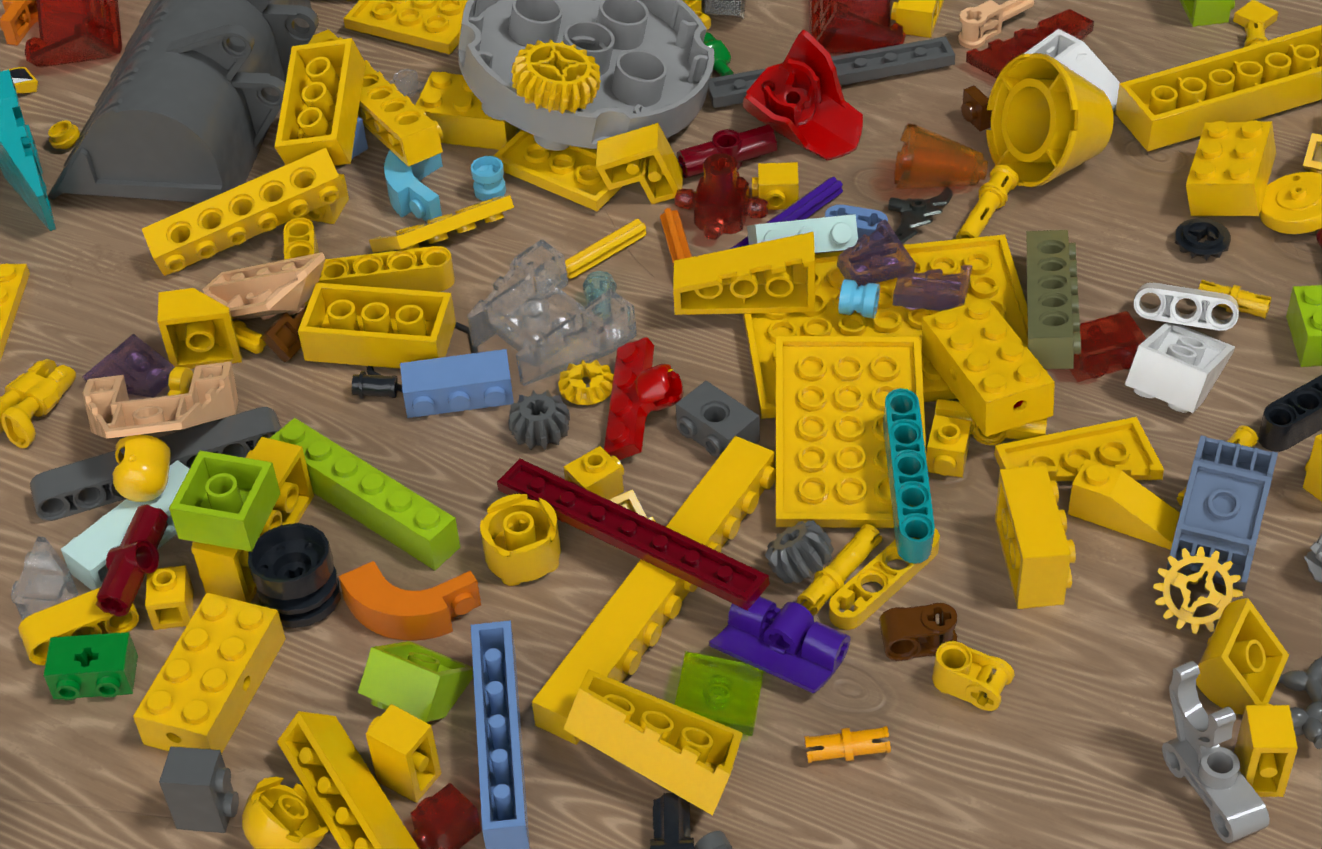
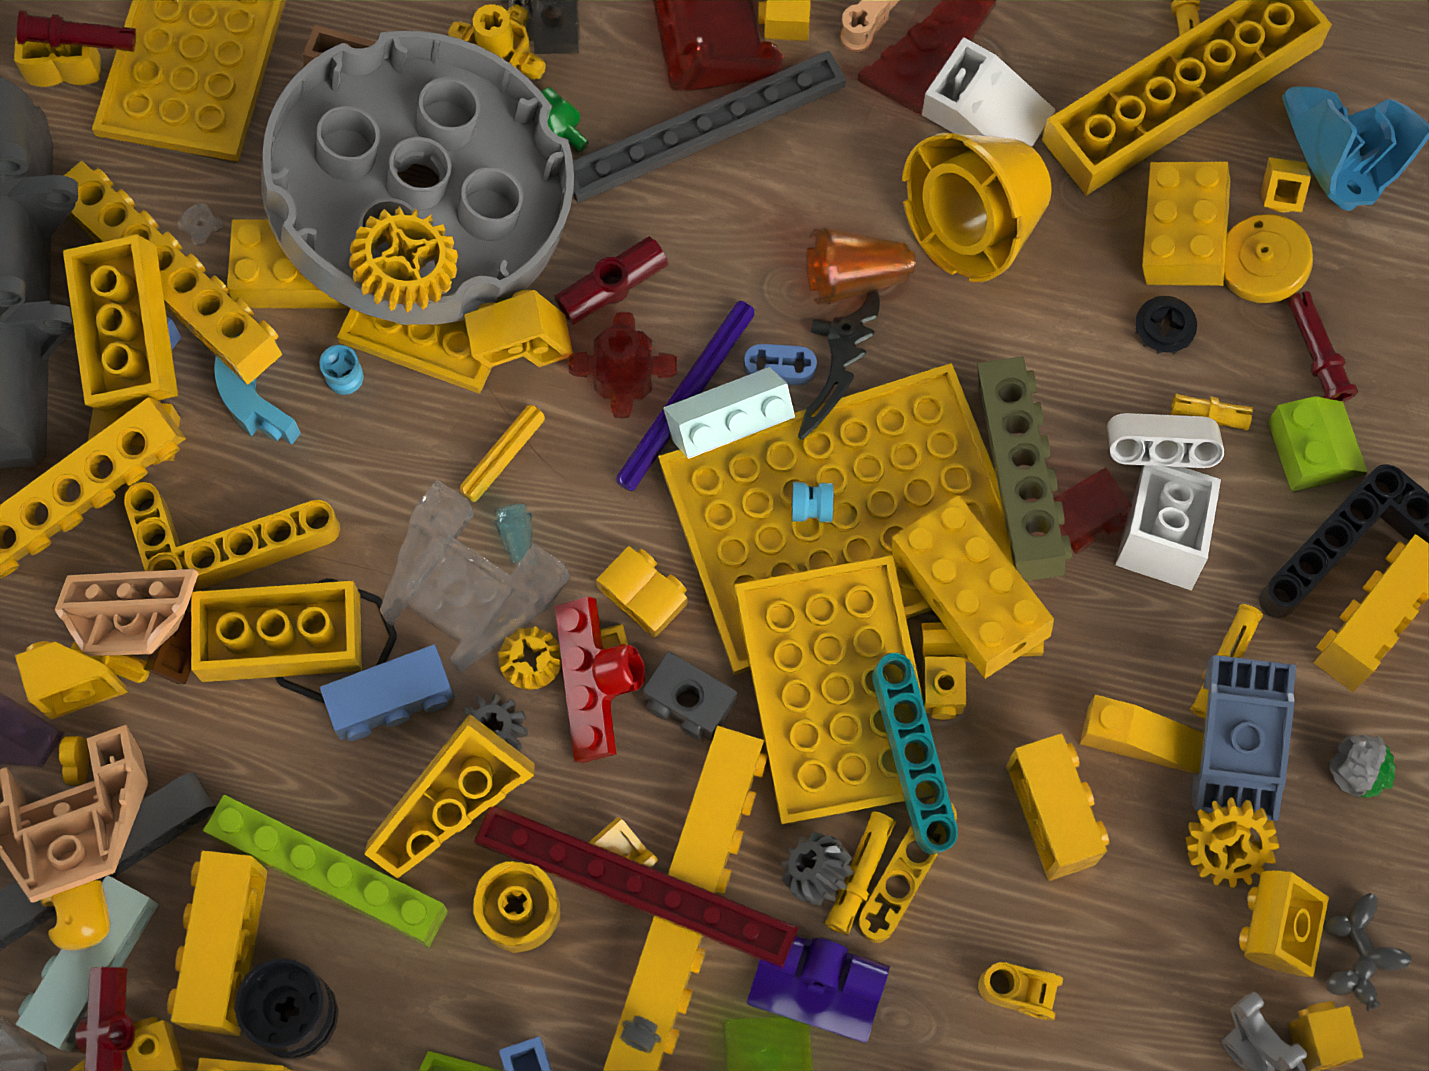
camera: 15 degrees left, 25 degrees up
(225, 500) = (196, 972): lime brick -> none
(374, 385) = (293, 708): black pin -> none
(403, 612) = (412, 1026): orange arch -> none
(437, 227) = (306, 457): yellow wing -> none
(484, 444) = (455, 788): none -> yellow wedge
(597, 473) = (574, 800): yellow brick -> none
(602, 634) = (640, 1034): none -> dark grey plate
(675, 235) = (586, 434): orange axle -> none
(696, 347) = (642, 591): none -> yellow brick
(748, 279) = (684, 500): yellow wedge -> none
(777, 184) = (680, 327): yellow brick -> none
(806, 101) = (712, 213): red piece -> none
(876, 257) = (818, 436): wing -> none
(914, 630) = (948, 944): reddish brown piece -> none
(932, 290) = (892, 471): wing -> none
(975, 108) = (884, 163): reddish brown plate -> none
(991, 197) = (925, 301): yellow pin -> none
(1114, 444) = (1101, 662): yellow wing -> none

